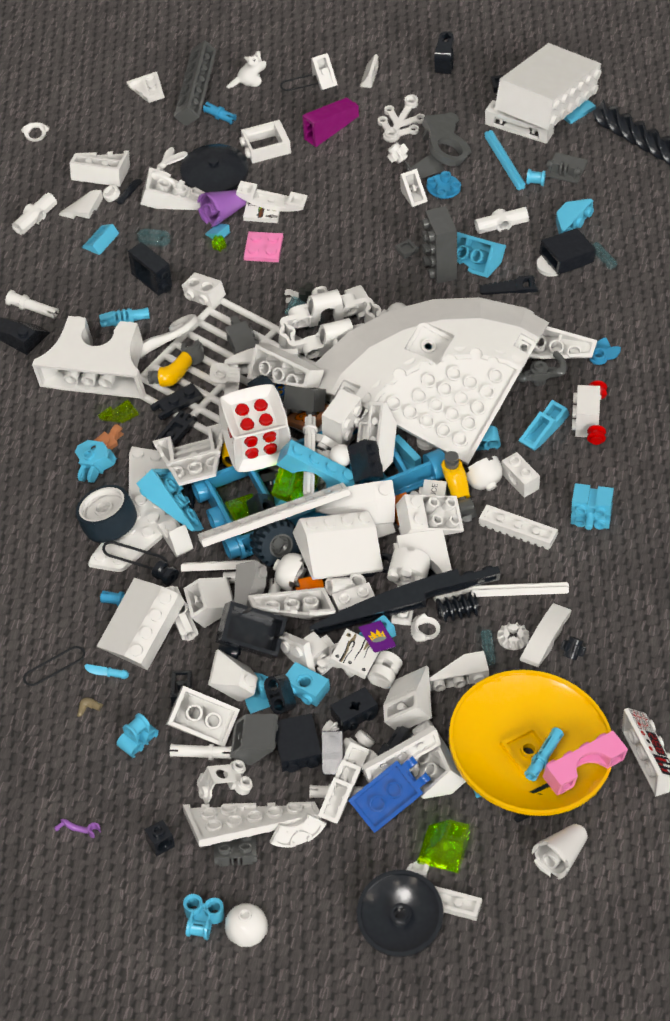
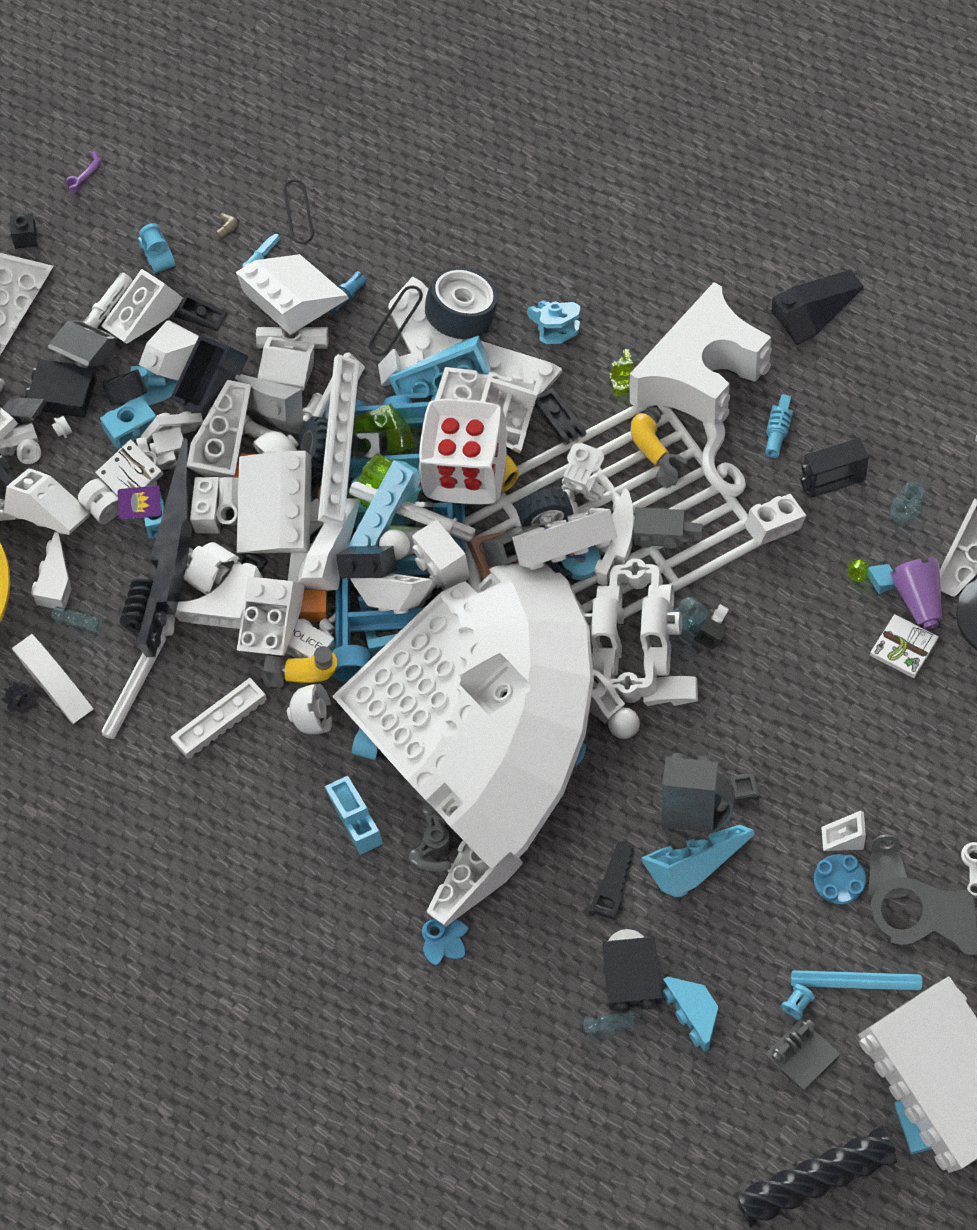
camera: 115 degrees right, 10 degrees up
(25, 302) = (856, 328): white pin -> none
(101, 239) = (934, 444): medium azure slope -> none
(111, 439) = (585, 348): nougat plate -> none
(164, 572) = (356, 341): black wheel -> none
(177, 401) = (604, 433): black hinge -> none
(233, 777) = (53, 314): white piece -> none
(263, 247) = (829, 621): bright pink plate -> none
(270, 200) = (906, 650): white slope -> none
(354, 709) = (70, 443): black brick -> none
(397, 153) = (927, 842): white gear -> none
(419, 620) = (131, 559): white piece -> none
(501, 220) = (735, 920): white piece -> none
(513, 642) = (69, 659): white gear -> none
(520, 474) = (289, 750): white brick -> none
(588, 410) = (336, 863): white brick -> none
(591, 506) = (190, 799): medium azure brick -> none

